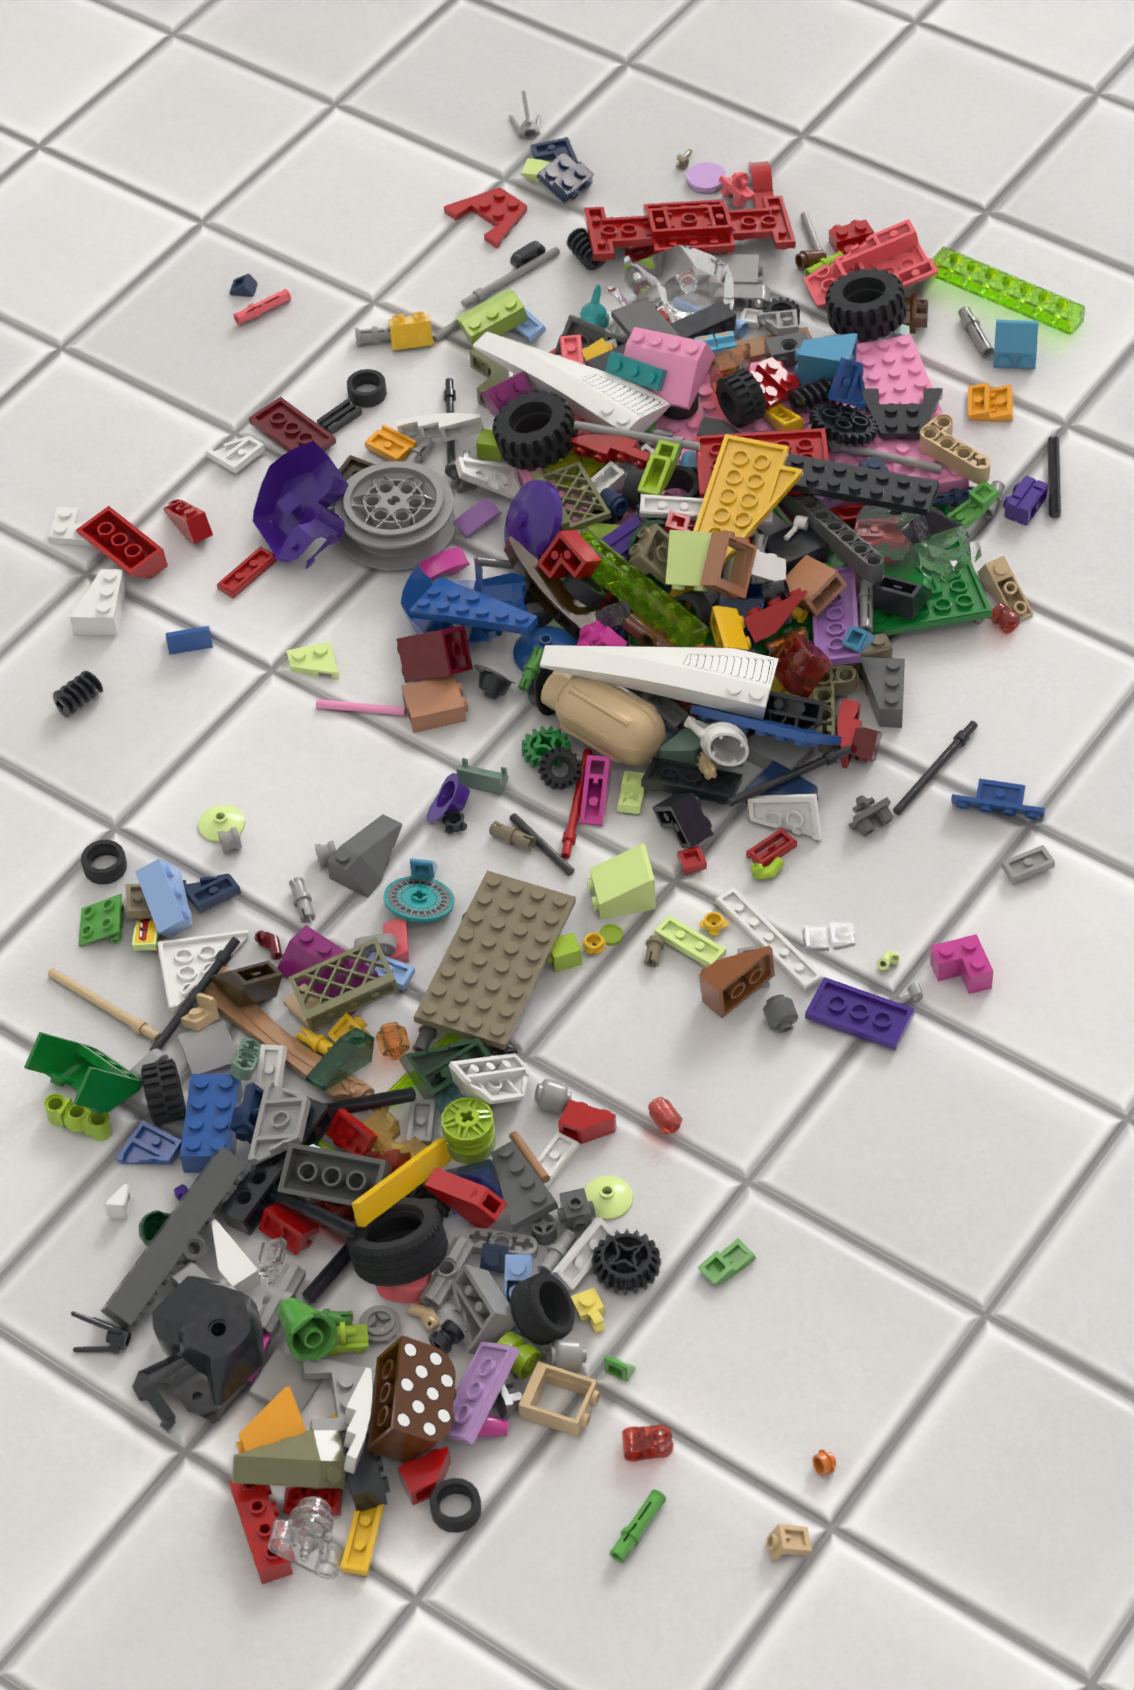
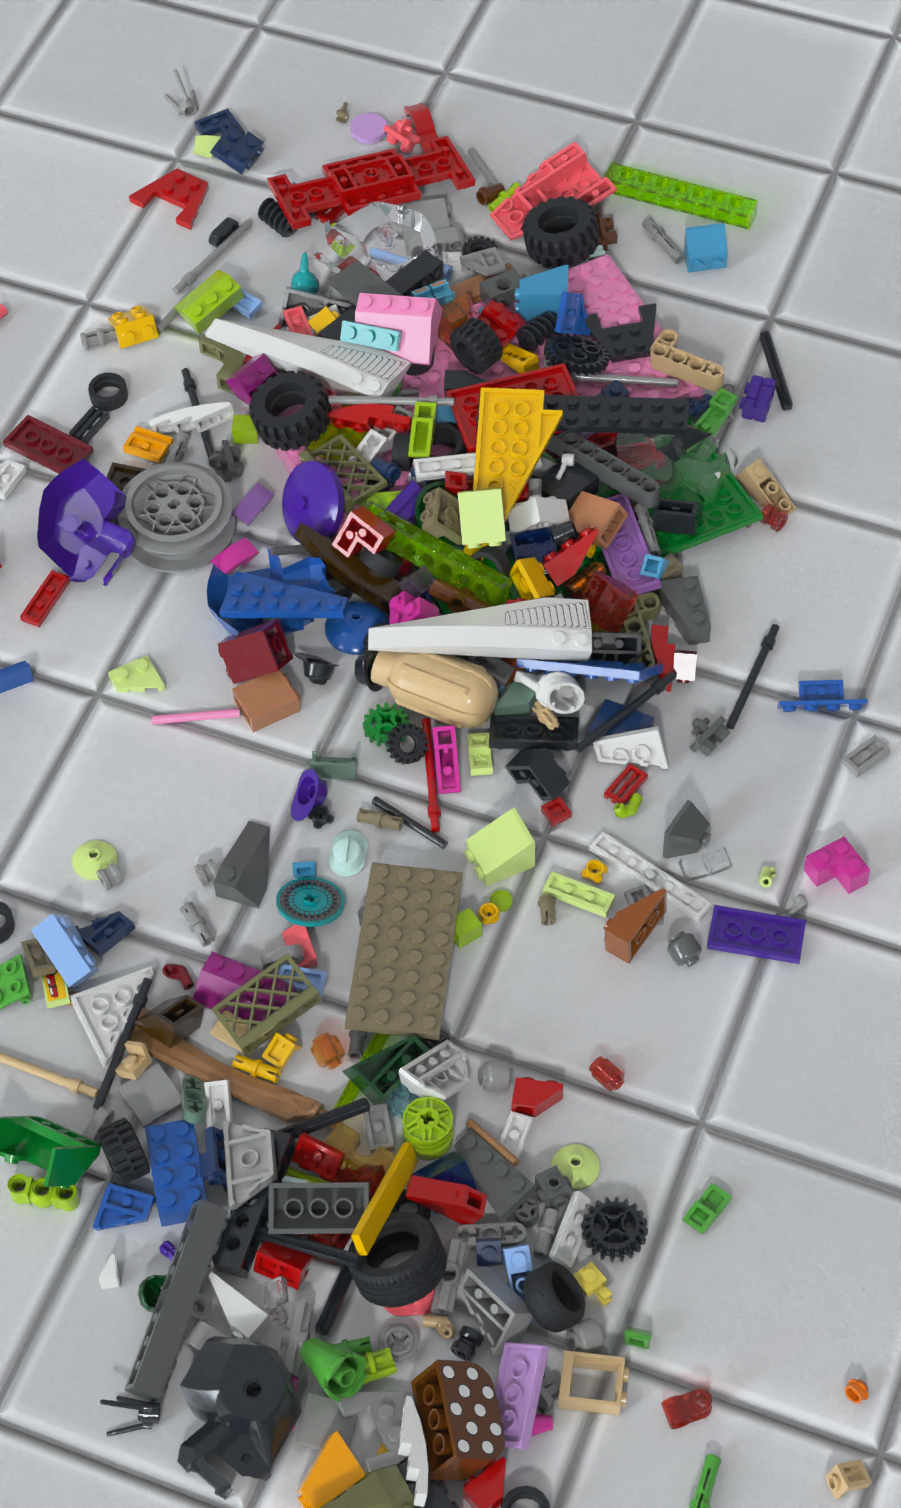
camera: 15 degrees left, 5 degrees up
(344, 1058) = (286, 1081): clear green slope -> none
(472, 862) = (348, 853): none -> light aqua piece
(489, 475) = (256, 461): white wing -> none
(527, 1357) = (535, 1335): lime wheel -> none
(531, 668) = (350, 648): bright green pin -> none
(741, 568) = (529, 516): nougat window -> none
(815, 901) = (686, 832): none -> dark grey slope
(845, 237) = (520, 165): red plate -> none
(990, 403) = (696, 308): light orange slope -> none

